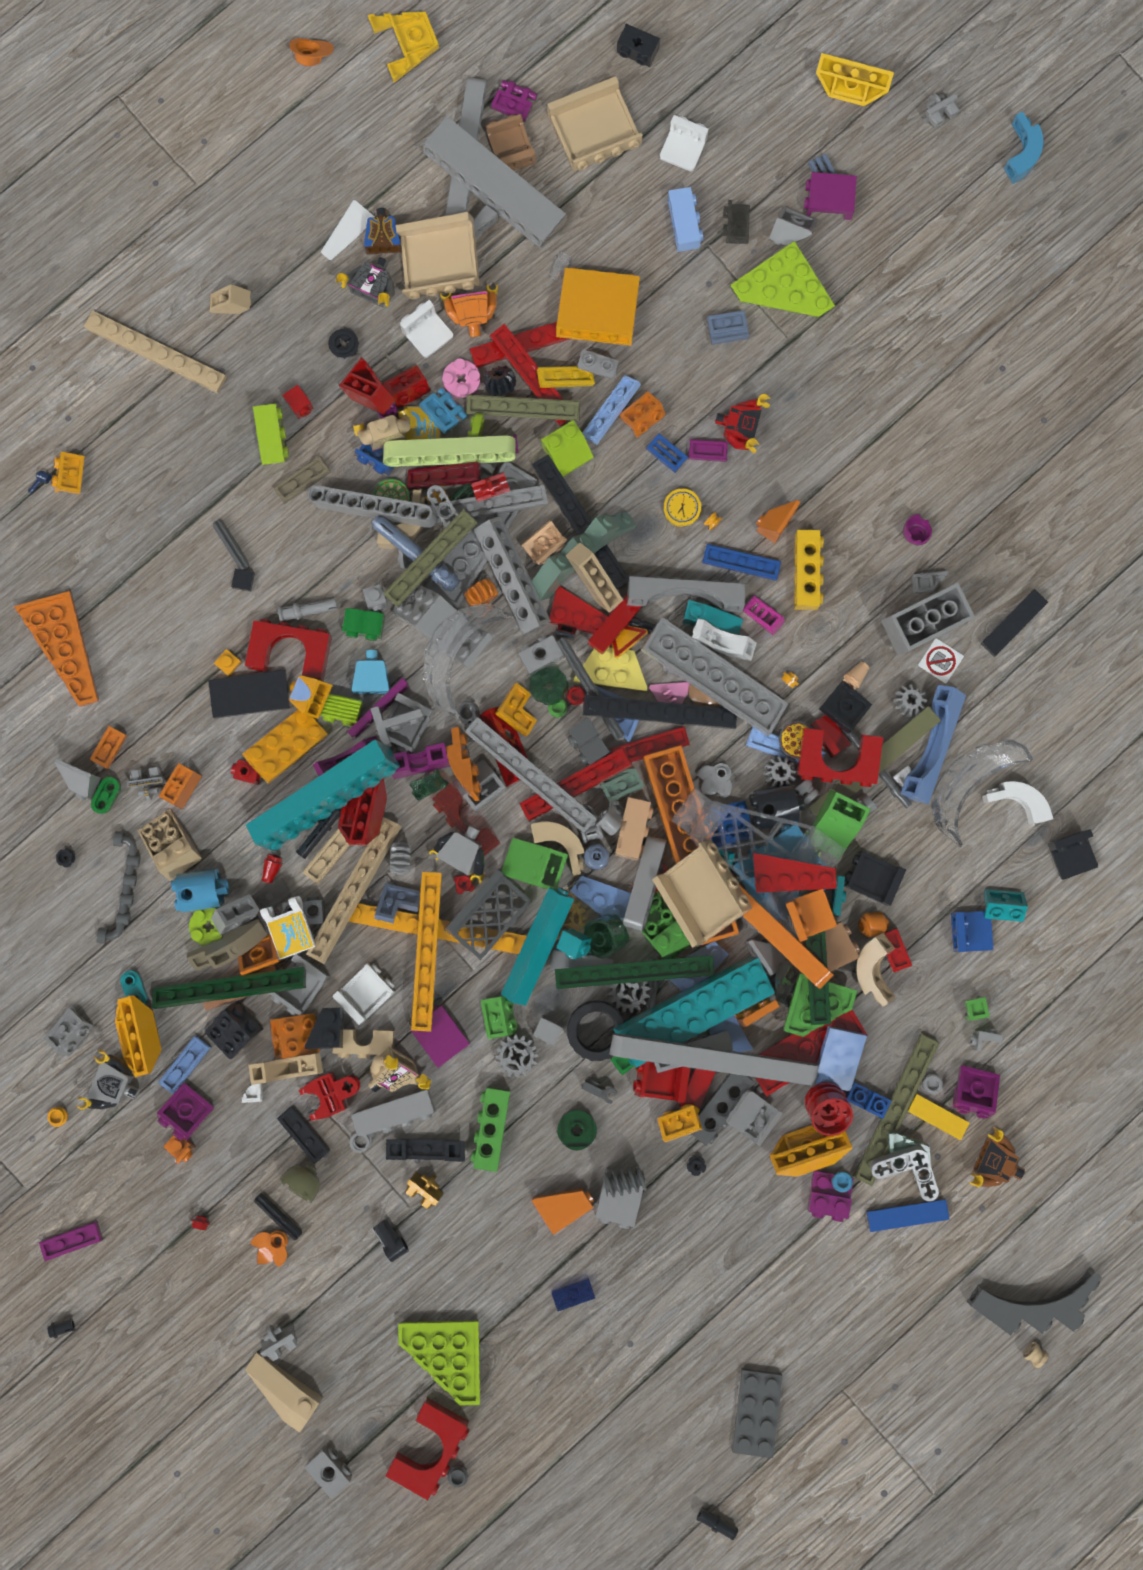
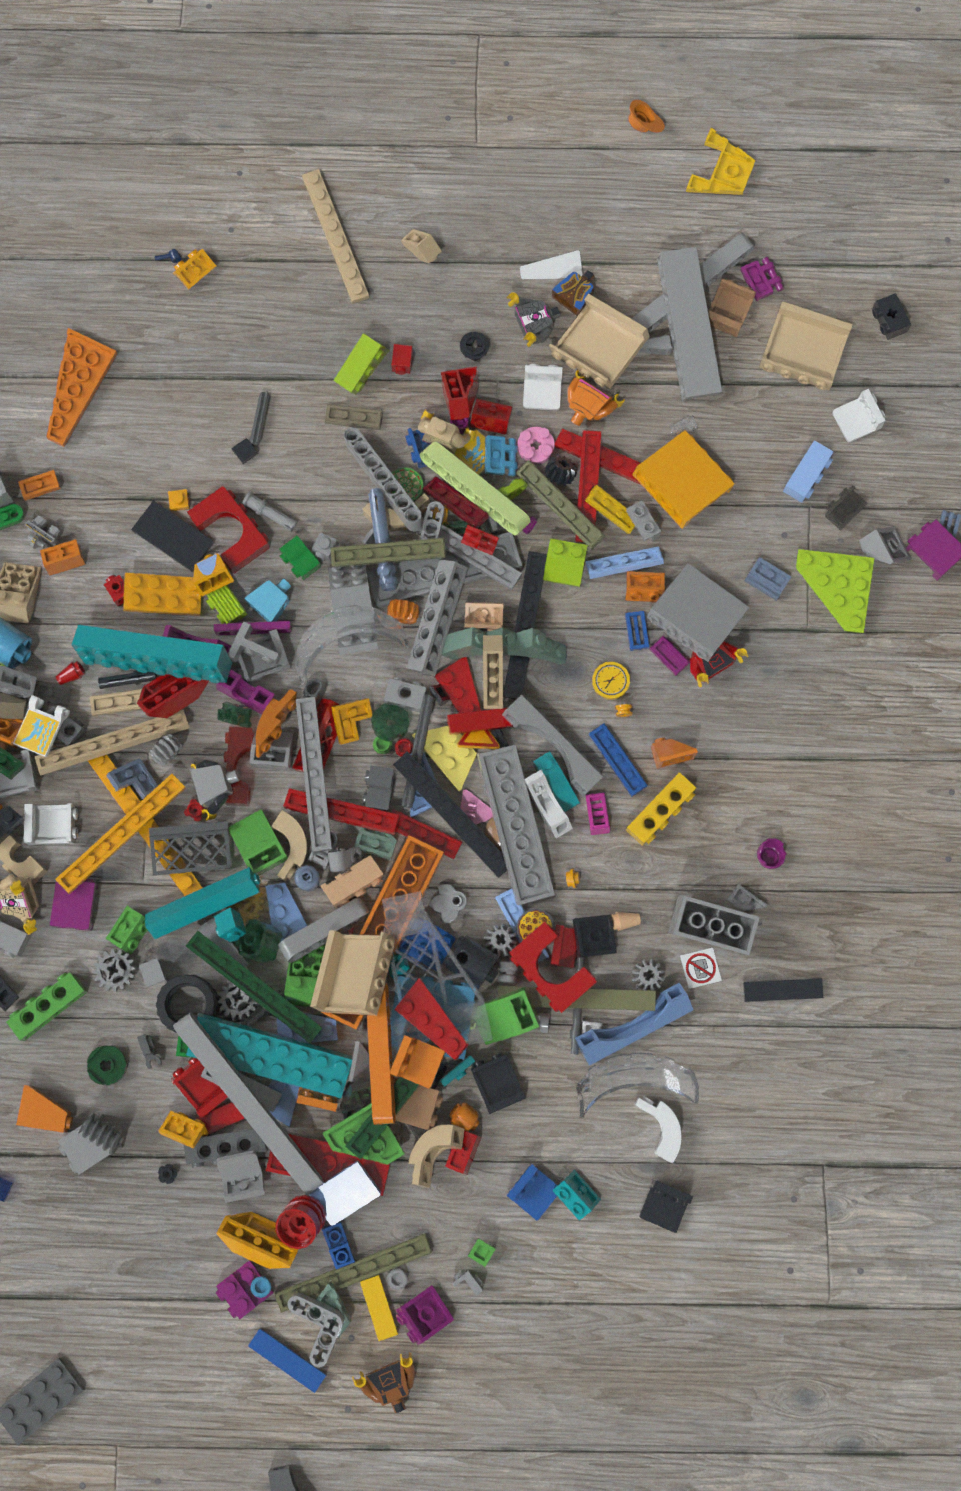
camera: 40 degrees right, 5 degrees down
(702, 398) = (697, 612): none -> light grey panel

